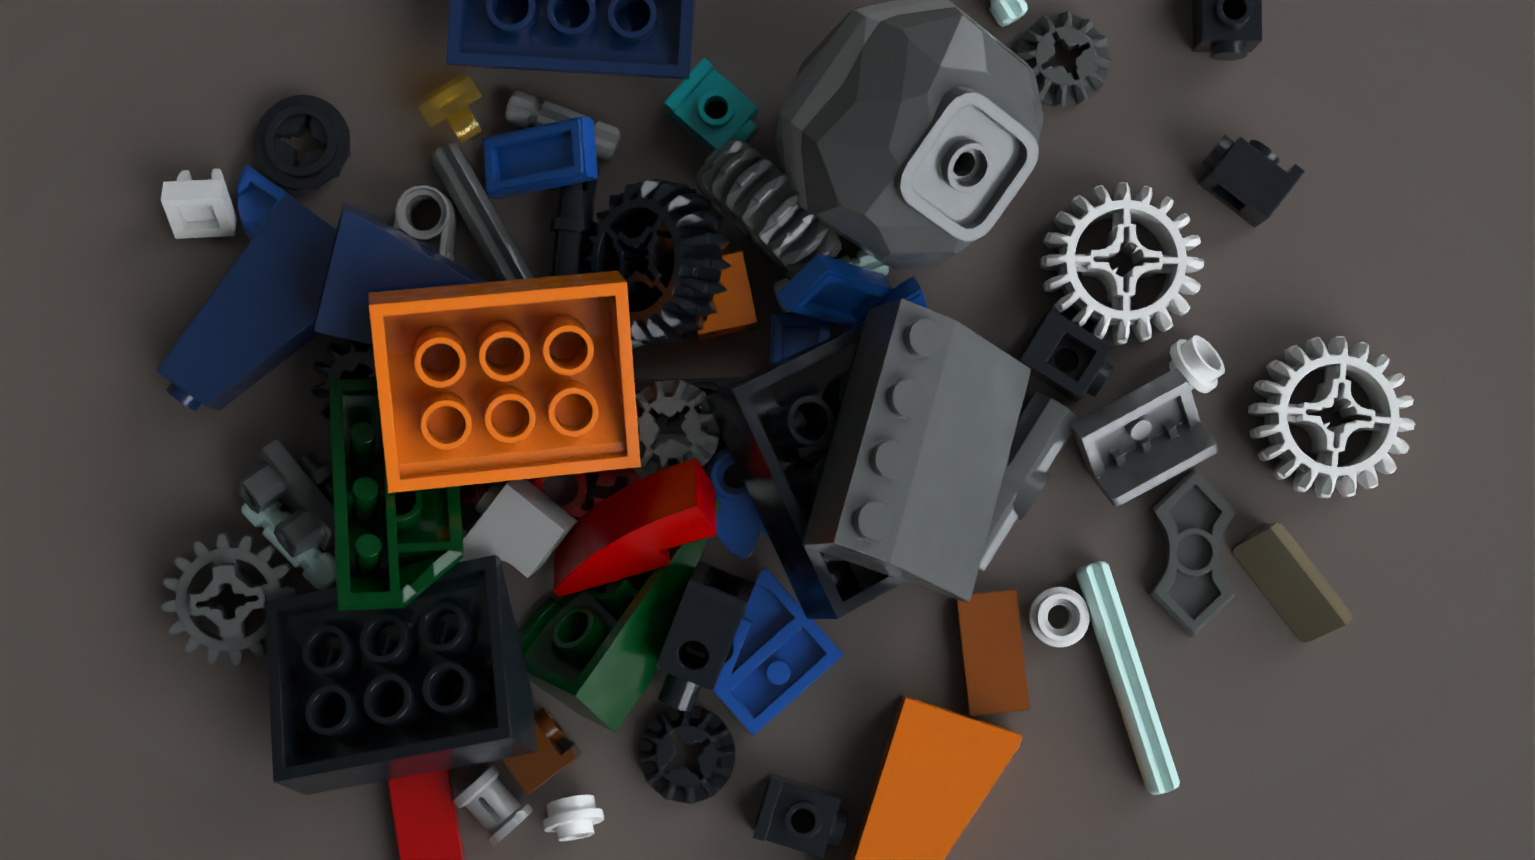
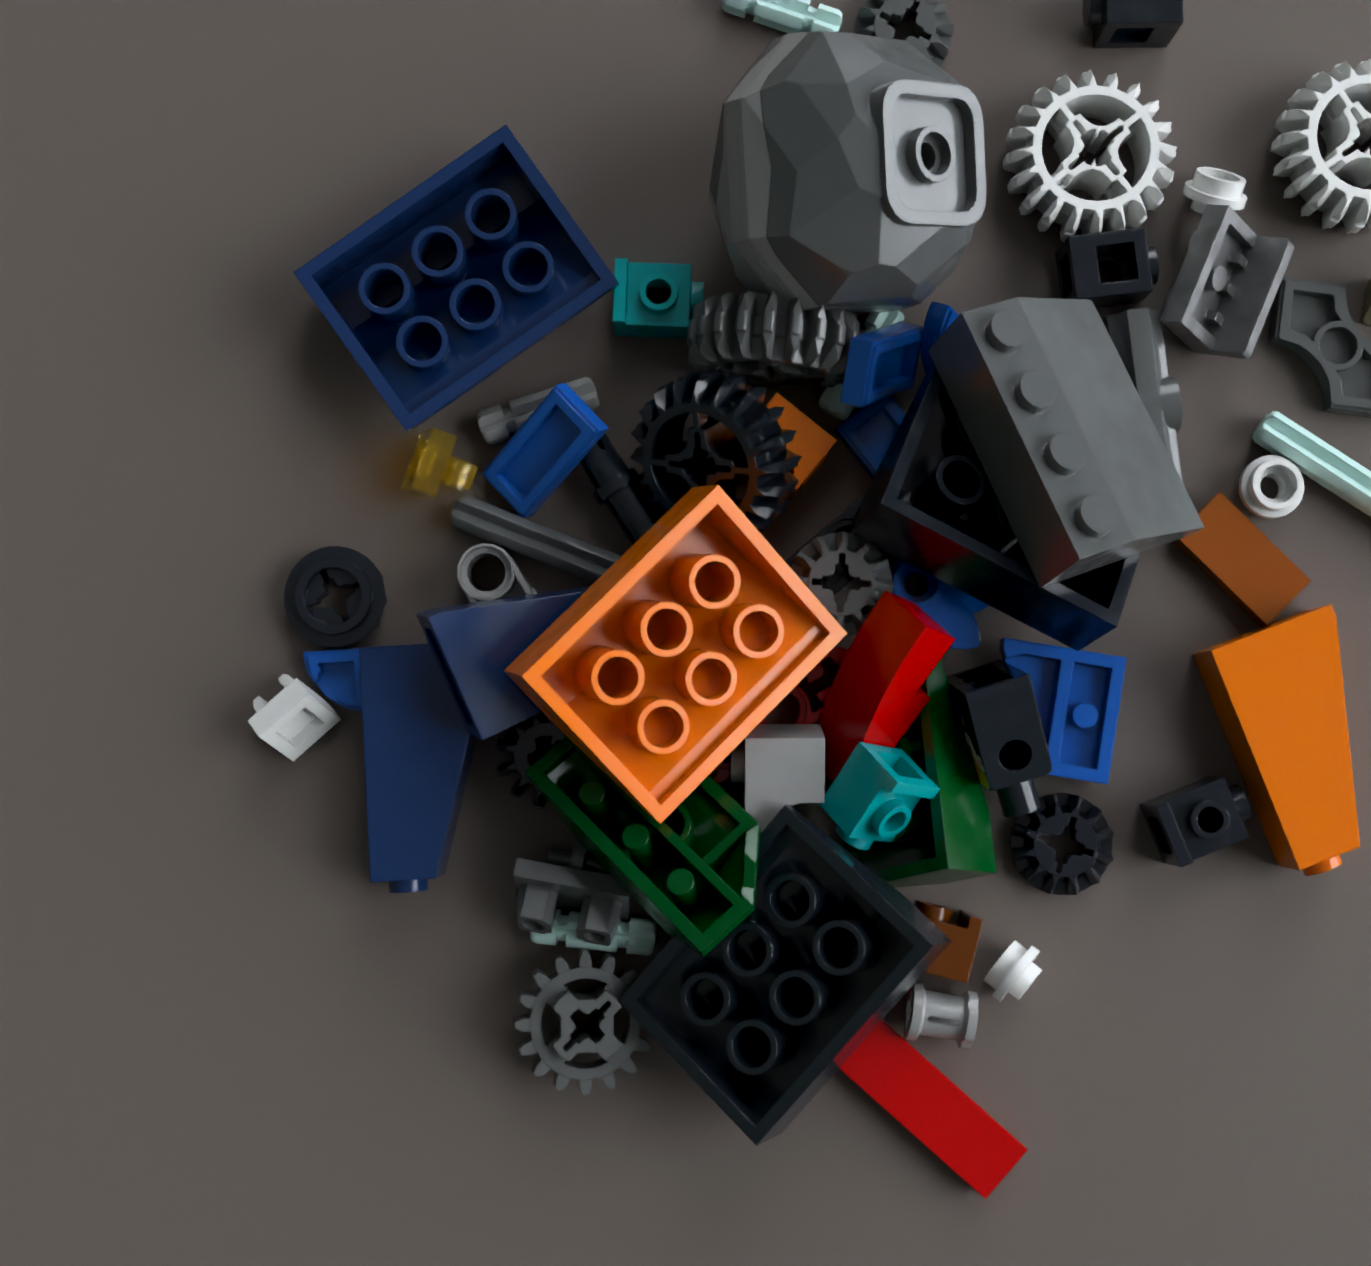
camera: 30 degrees left, 0 degrees up
(571, 602) = (876, 794): none -> teal brick

